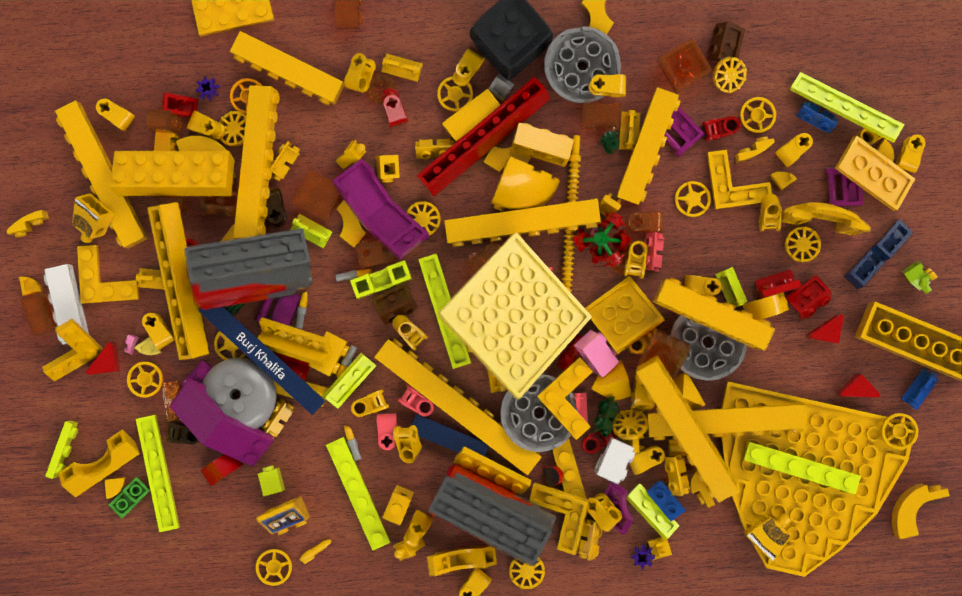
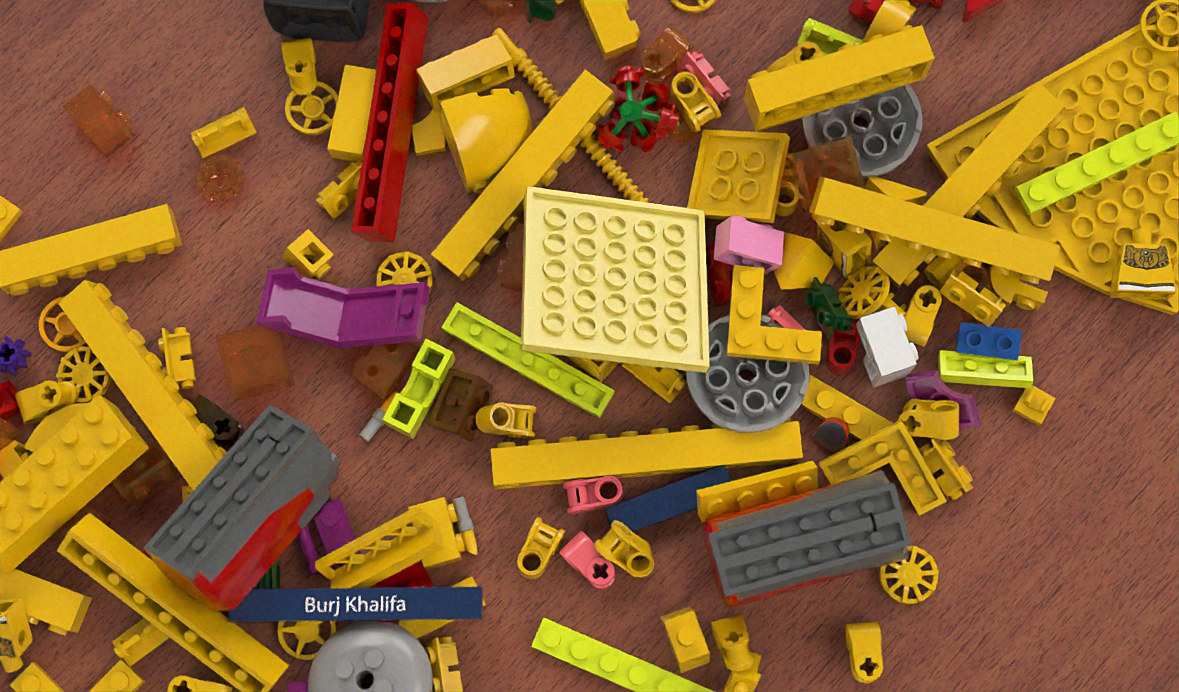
camera: 40 degrees left, 10 degrees down
(301, 310) = (355, 511): light grey piece -> none
(313, 232) = (298, 405): neon yellow hinge -> none
(349, 380) = (489, 542): neon yellow plate -> none
(351, 154) = (252, 276): yellow piece -> none
(352, 229) = (333, 366): yellow tile -> none
(352, 443) = (561, 616): light grey piece -> none
(359, 75) = (181, 182): yellow piece -> none
(393, 109) = (259, 185): piece -> none
(461, 558) = (820, 628): yellow arch -> none
(501, 87) = (359, 52): light grey plate -> none
(609, 205) = (605, 69): yellow tile -> none
(642, 562) = (1030, 436): dark purple gear -> none
(858, 387) = (1075, 20): red slope -> none

